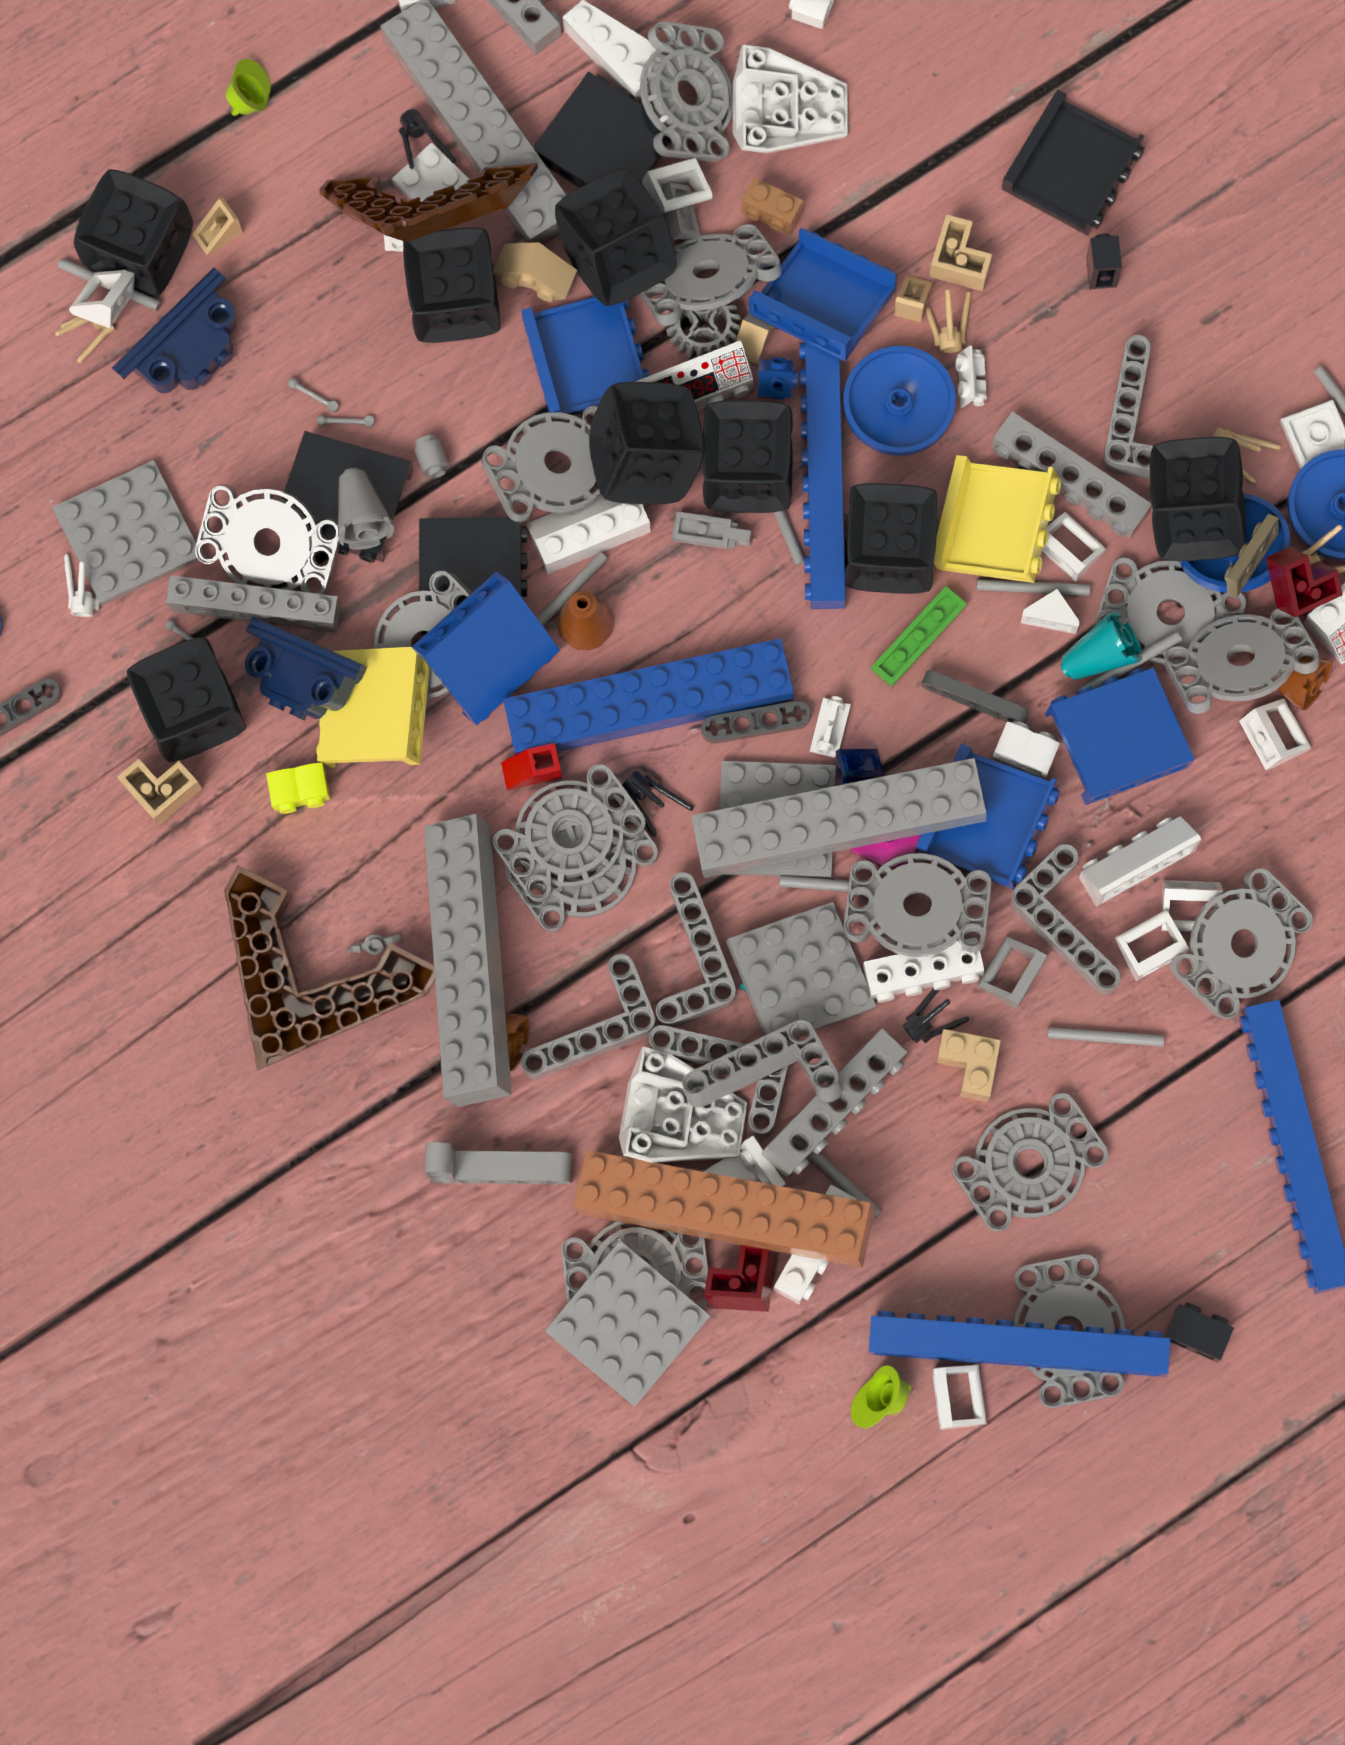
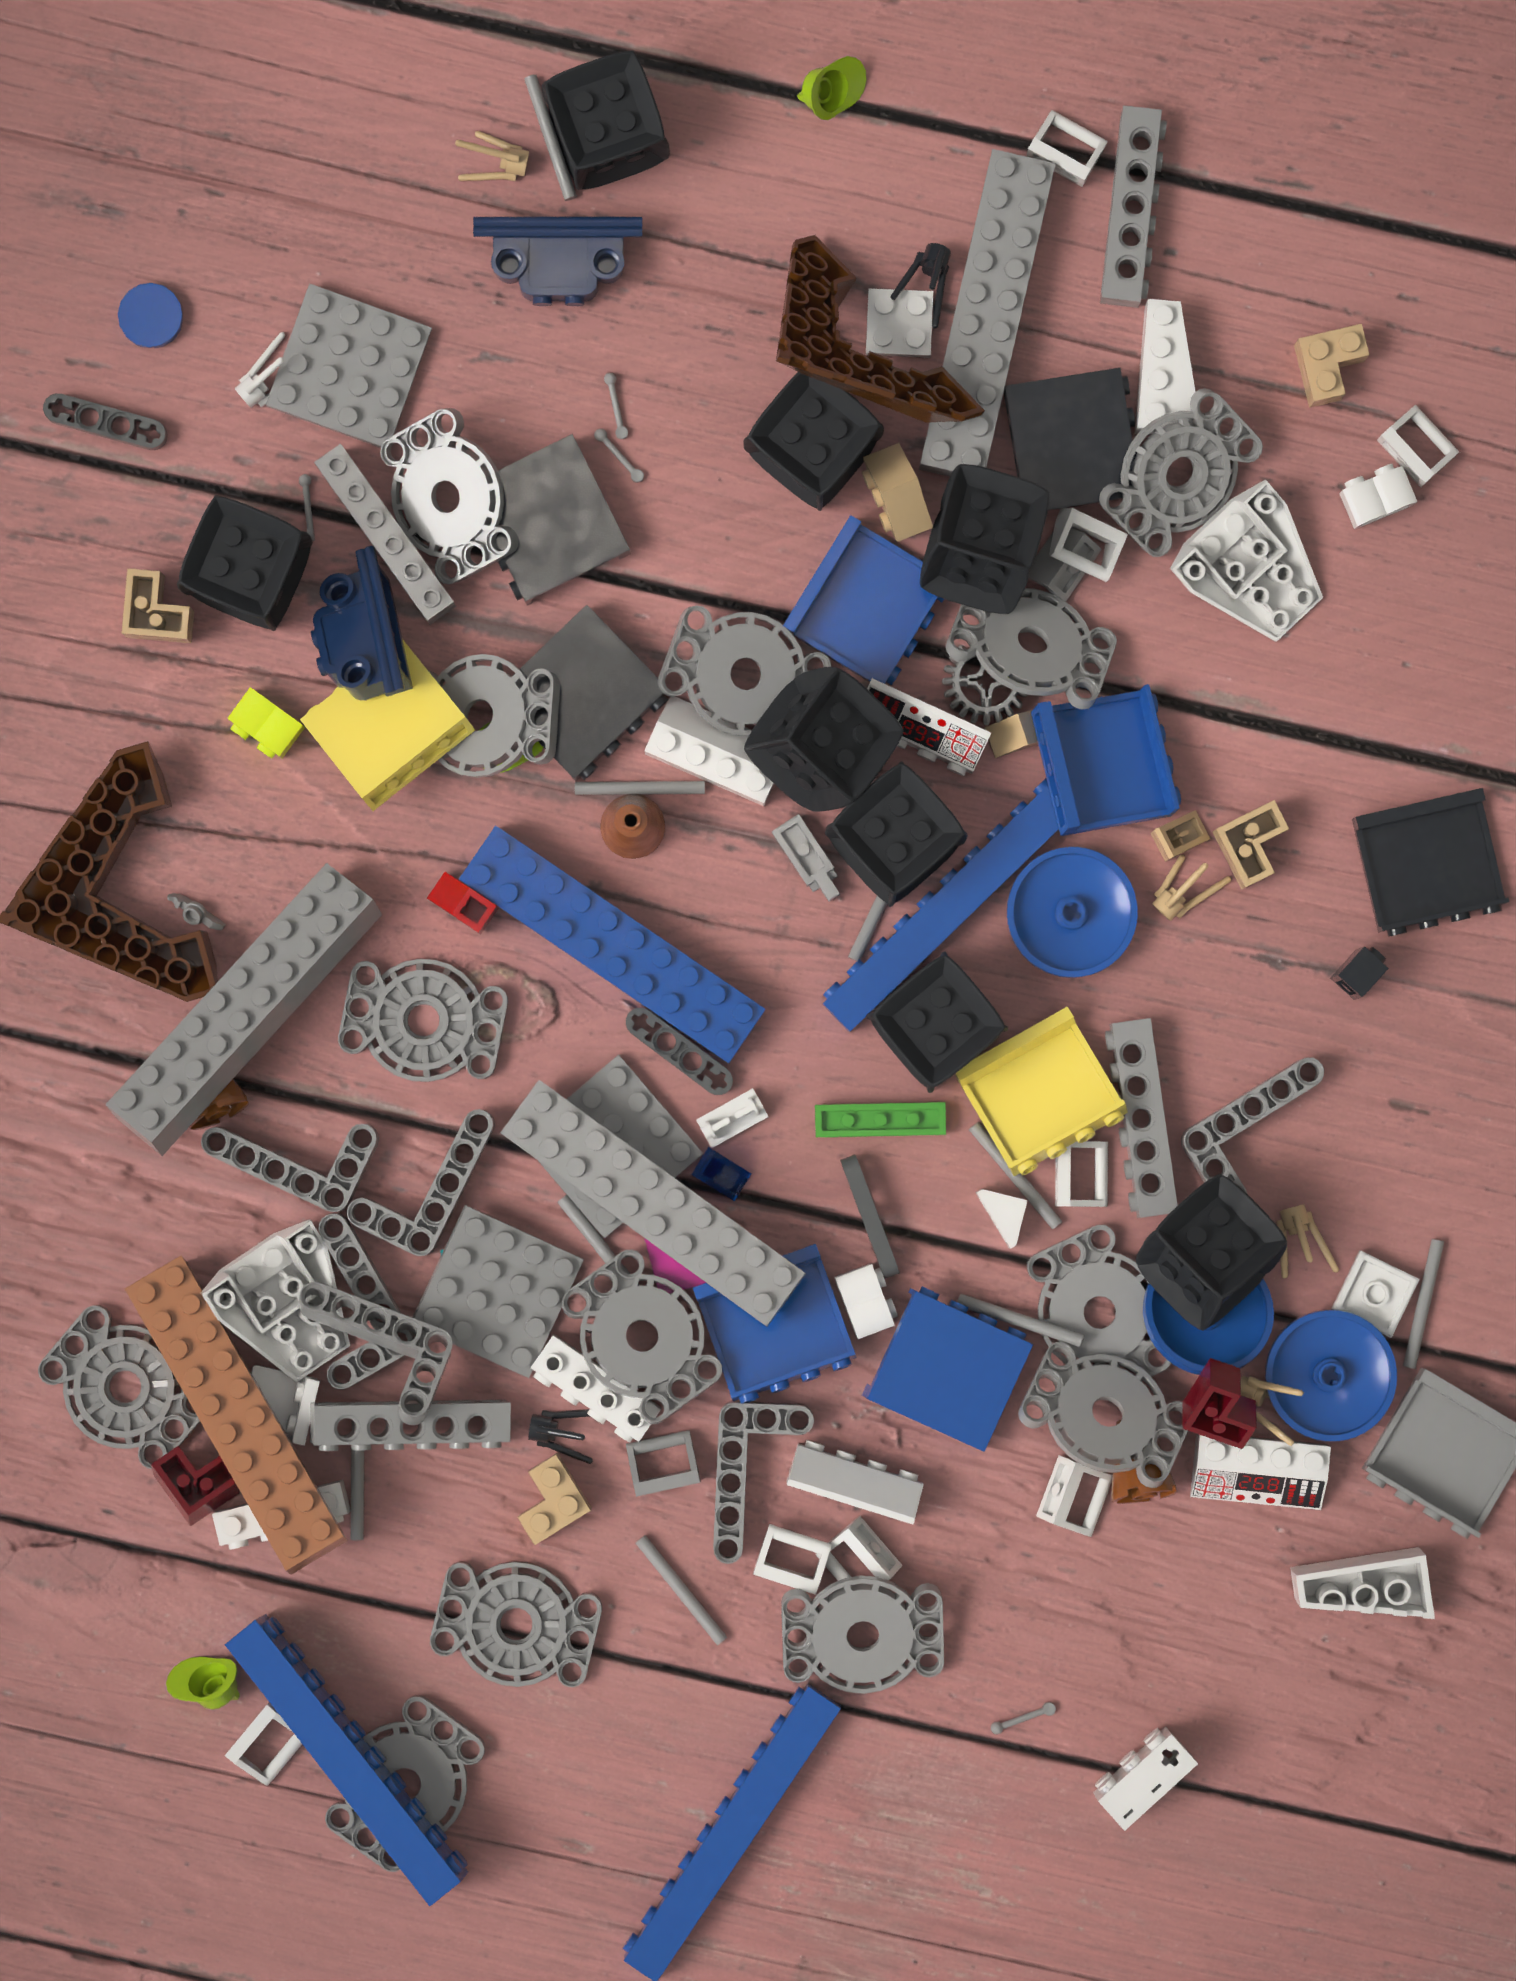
camera: 40 degrees right, 10 degrees up
(106, 311) = (517, 166): white tile -> none
(217, 228) = (683, 182): tan slope -> none
(361, 512) = (542, 551): light grey cone -> none
(431, 456) = (653, 560): light grey brick -> none
(486, 647) = (521, 772): blue panel -> none
(495, 1167) = (65, 1151): light grey beam -> none
(588, 810) = (401, 987): light grey piece -> none
(627, 1323) = (74, 1420): light grey plate -> none
(641, 787) = (531, 1007): black plant -> none
(771, 206) = (1147, 640): medium nougat brick -> none
(776, 378) = (995, 788): blue brick -> none
(969, 365) = (1162, 940): white hinge -> none
(1102, 649) = (1011, 1288): teal cone -> none
(1199, 1332) = (501, 1891): black brick -> none
(1251, 555) = (1204, 1341): dark tan plate -> none

